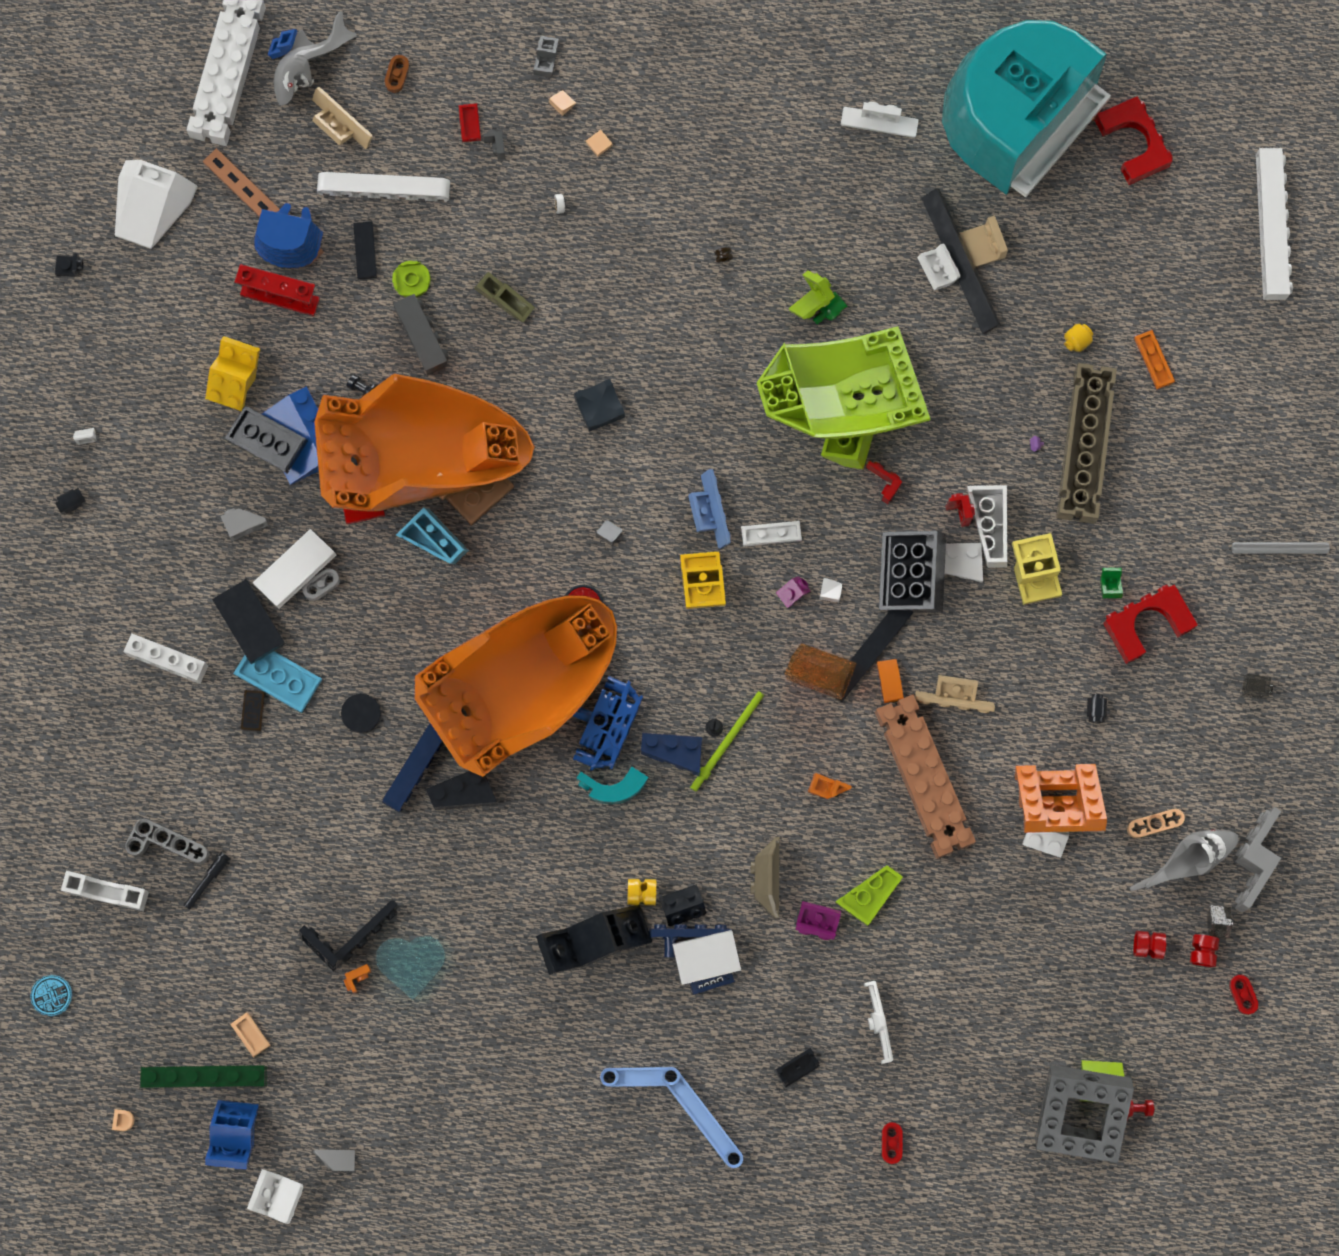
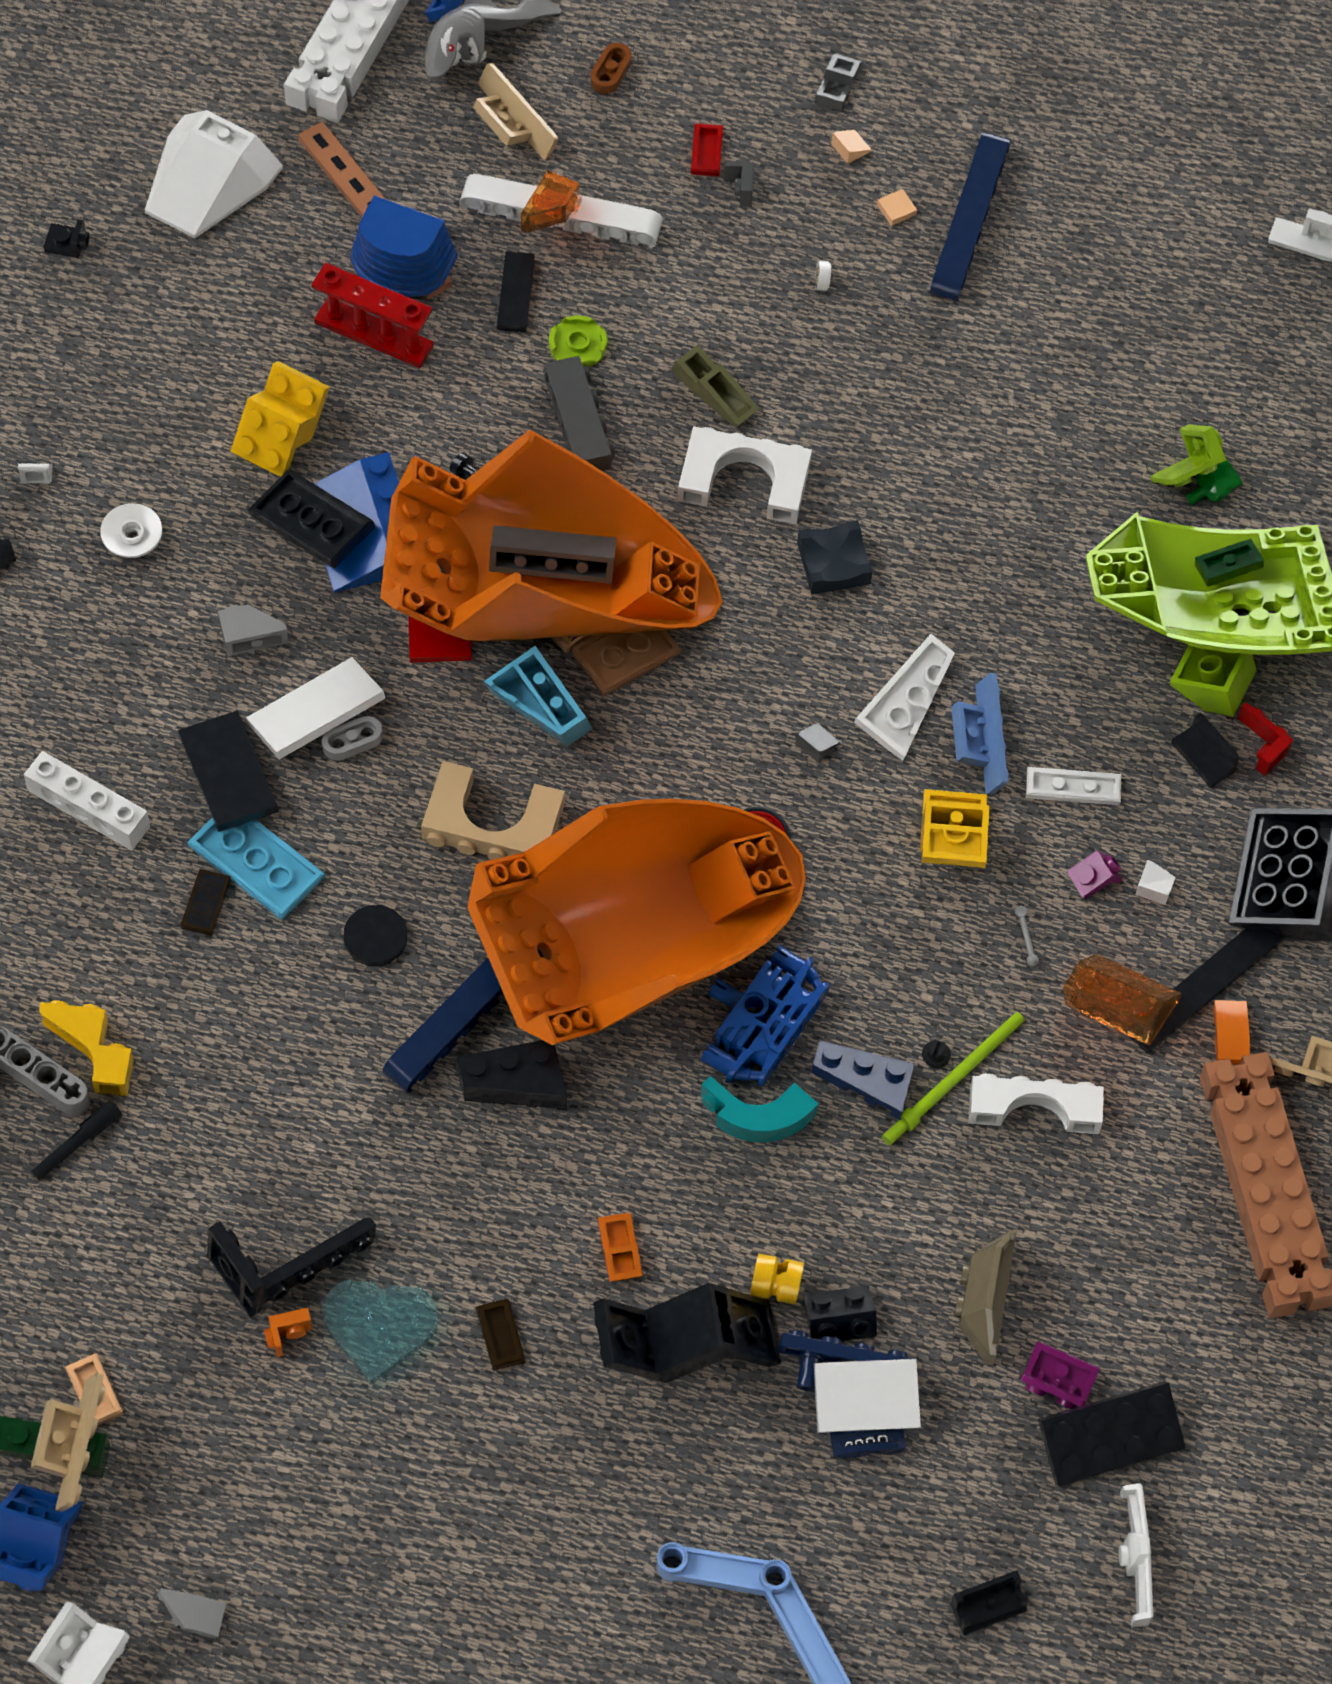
camera: 10 degrees right, 15 degrees down
(150, 459) = (130, 519): none -> white dish
(198, 809) = (86, 1031): none -> yellow arch
(241, 1077) = (65, 1439): none -> tan bracket
(376, 187) = (551, 203): none -> clear orange slope
(422, 438) = (552, 554): none -> dark grey brick
(441, 636) = (448, 824): none -> tan arch
(484, 955) = (500, 1334): none -> dark brown tile
(510, 343) = (713, 450): none -> white arch
(545, 887) = (619, 1247): none -> orange slope
(647, 142) = (969, 216): none -> dark blue beam
(657, 498) = (906, 698): none -> white wing
(723, 254) = (1061, 384): dark brown bush -> none
(751, 624) = (1021, 913): none -> light grey hinge
(804, 747) = (1075, 1104): none -> white arch
(827, 787) = (1104, 1175): orange slope -> none
(846, 365) = (1229, 562): none -> dark green plate
(849, 496) = (1206, 751): none -> black panel
(853, 951) = (1111, 1433): none -> black plate
(869, 896) = (1153, 1352): lime wing -> none

